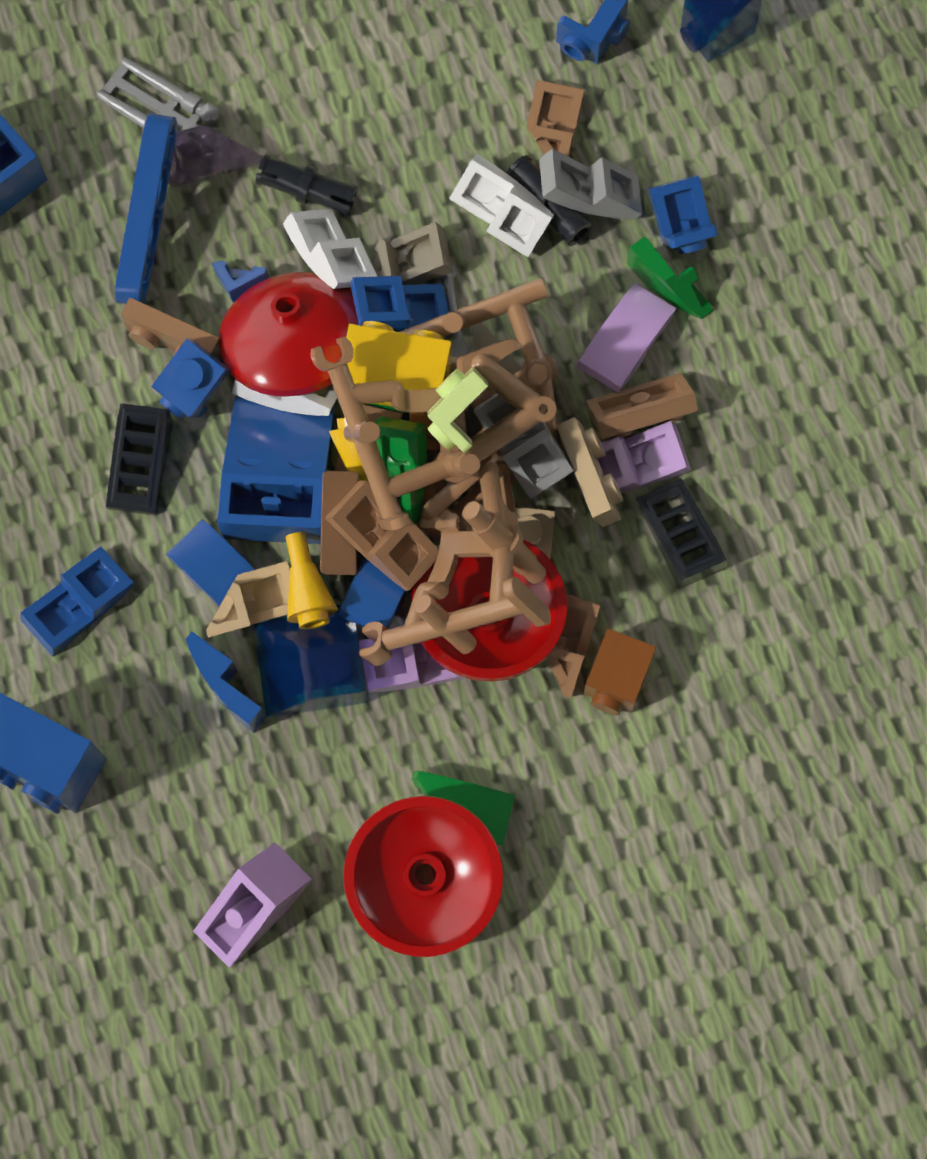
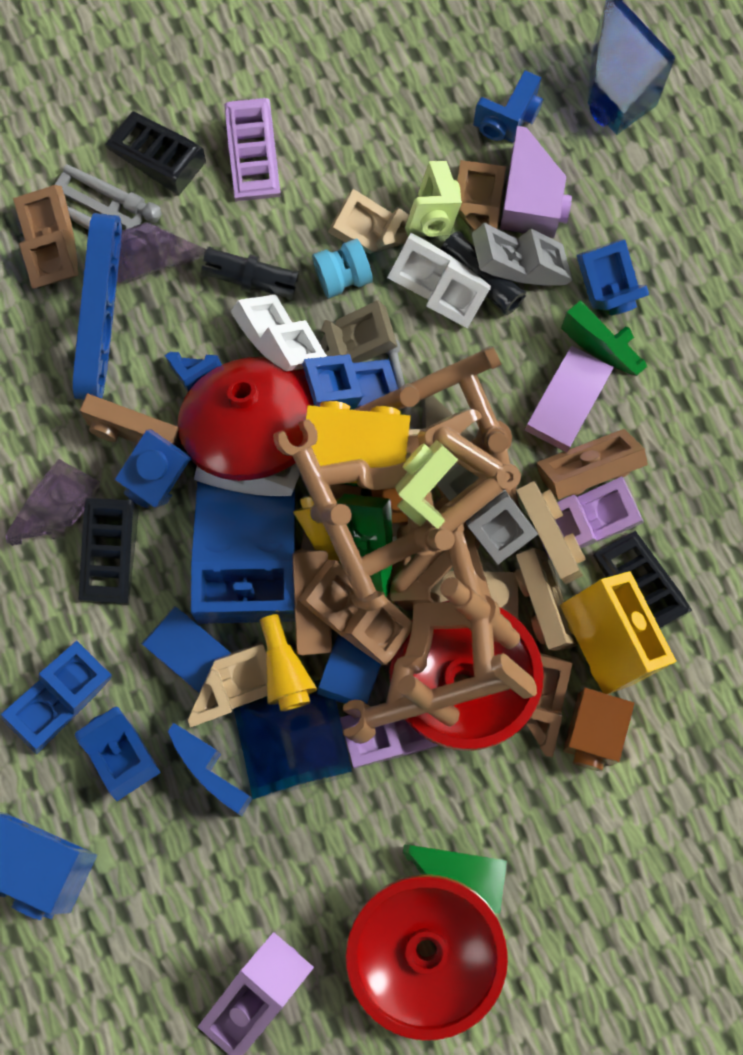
camera: 10 degrees left, 0 degrees up
(87, 408) = (53, 504): none -> clear purple slope
(101, 132) = (48, 236): none -> medium nougat slope
(133, 658) = (117, 753): none -> blue bracket
(235, 79) = (173, 178): none -> black slope
(314, 24) = (245, 121): none -> lavender slope
(391, 187) = (342, 268): none -> medium azure wheel
(438, 143) = (369, 223): none -> tan slope
(509, 124) = (436, 204): none -> yellowish green bracket
(584, 559) = (539, 583): none -> tan plate
(610, 116) = (534, 189): none -> lavender slope
(647, 577) = (617, 632): none -> yellow brick

